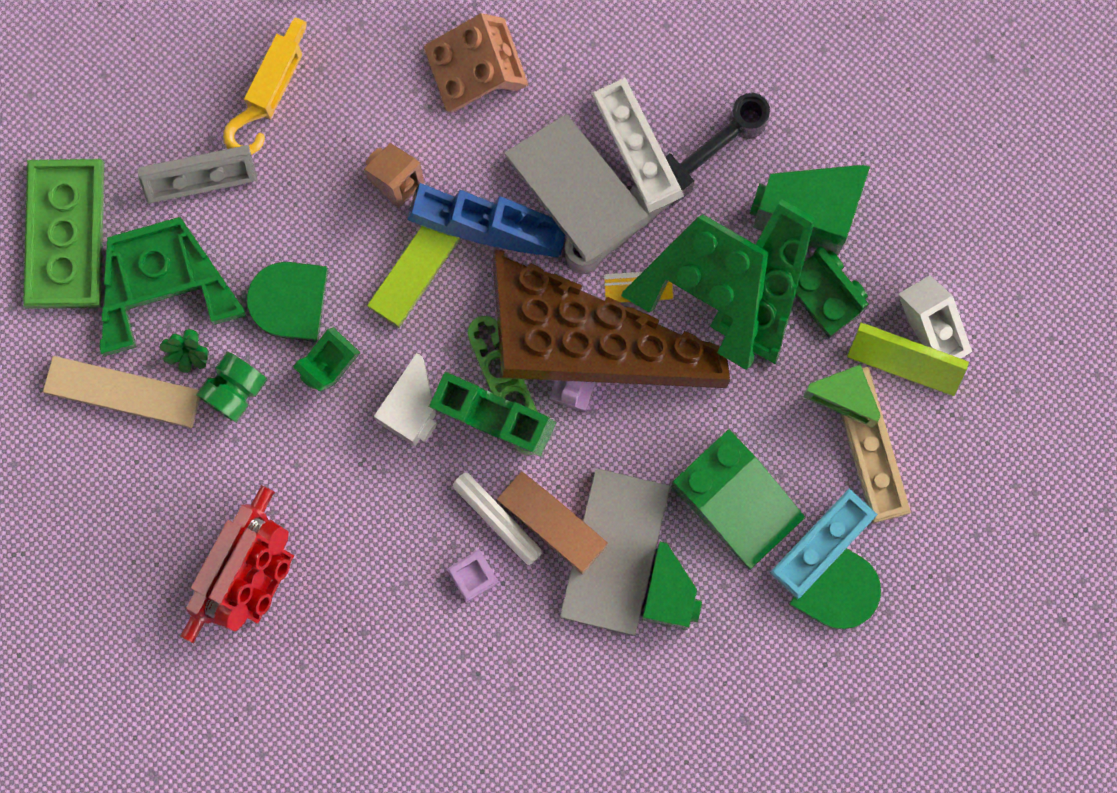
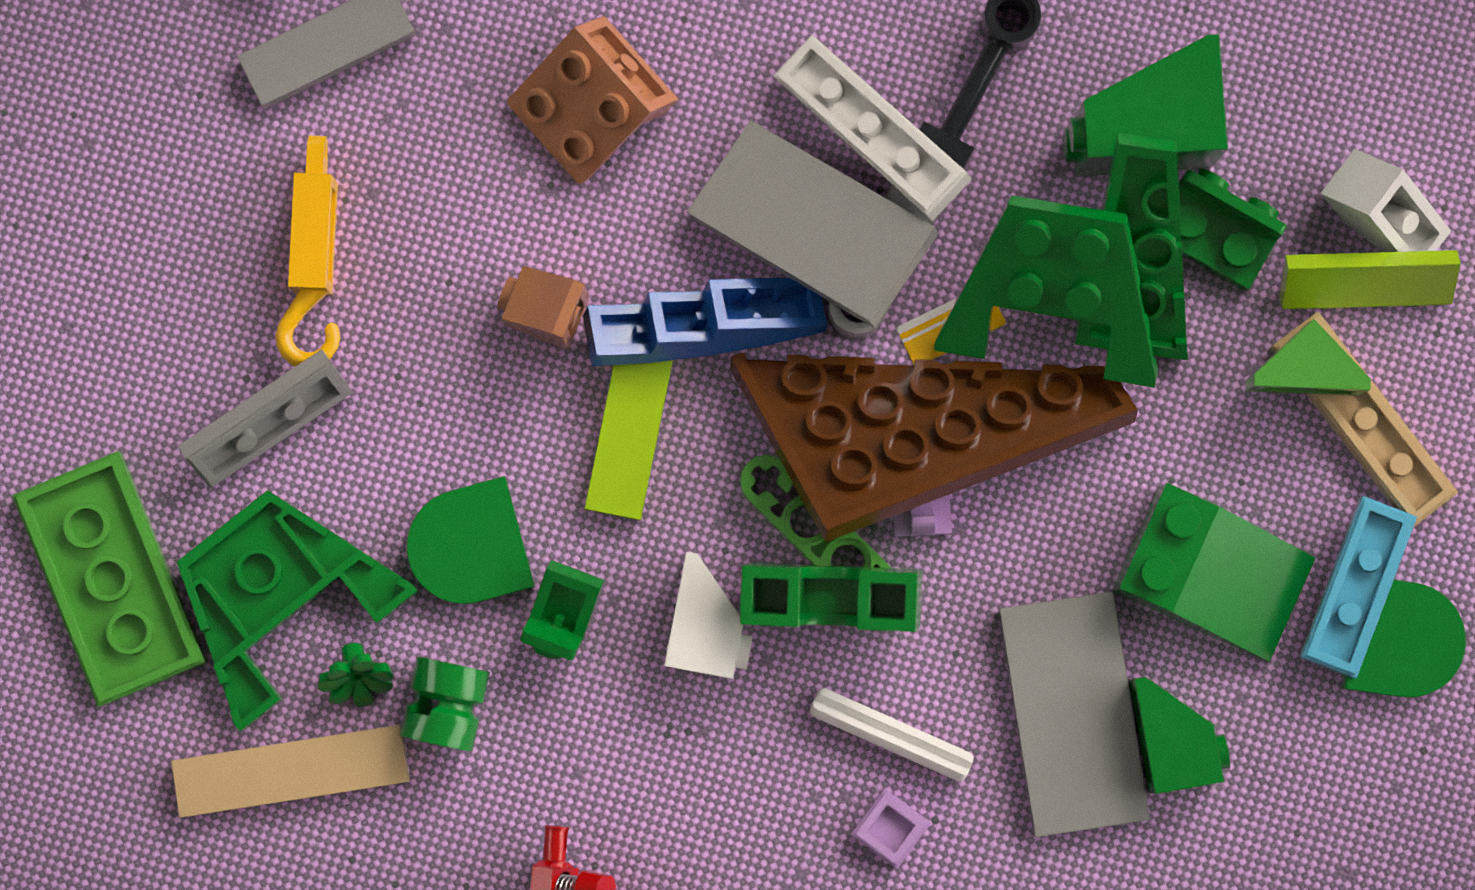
camera: 25 degrees left, 5 degrees up
(552, 522) = (972, 709): nougat slope -> none

